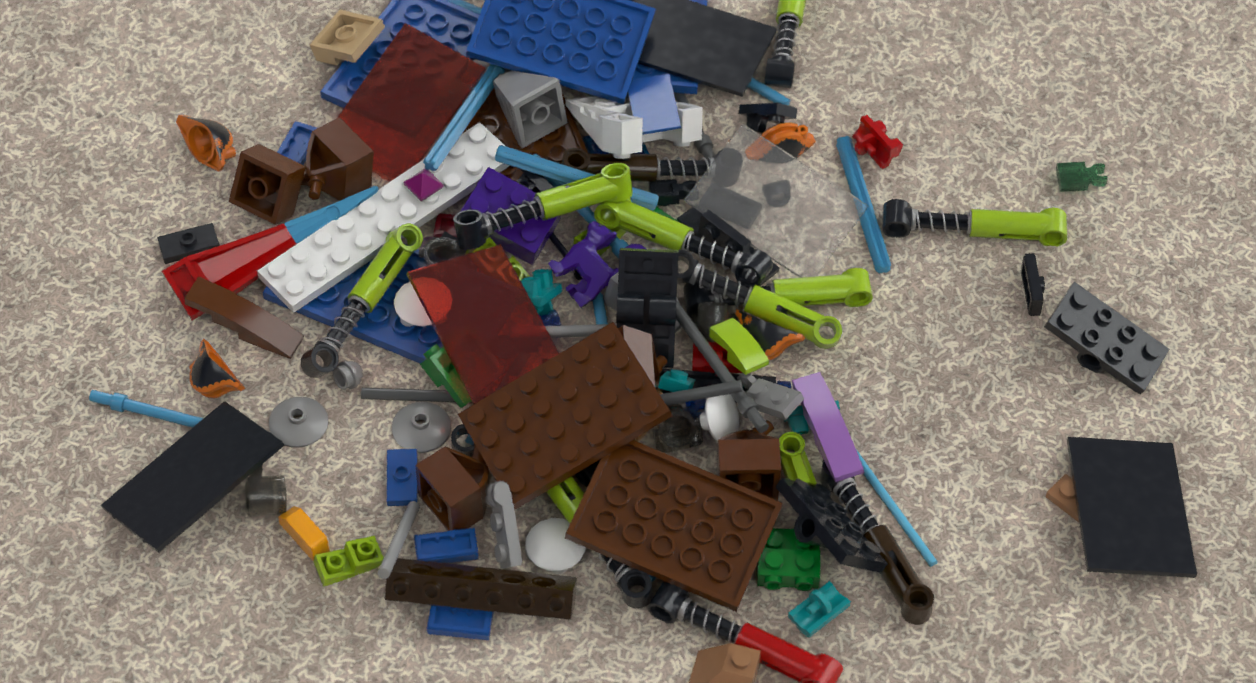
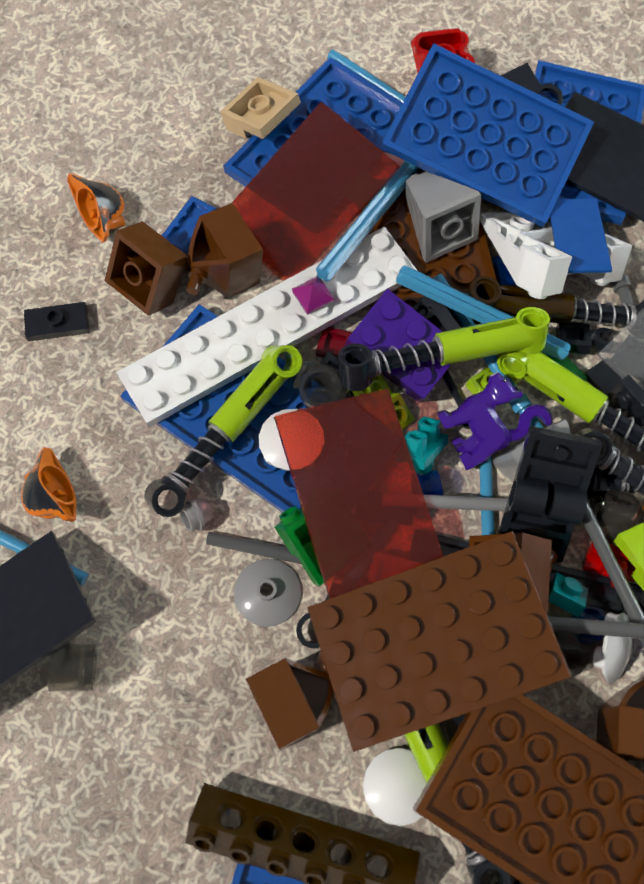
camera: 10 degrees right, 15 degrees up
(237, 262) = (78, 366): red plate -> none
(245, 317) = (92, 426): reddish brown slope -> none
(299, 431) = (142, 575): light grey dish -> none
(304, 532) = (109, 720): light orange piece -> none
(355, 558) = (156, 766): lime slope -> none
(398, 540) = (211, 768): light grey bar -> none
(401, 477) = (235, 659): blue plate -> none
(447, 546) = (270, 769): blue plate -> none
(504, 524) = (342, 768): light grey hinge -> none

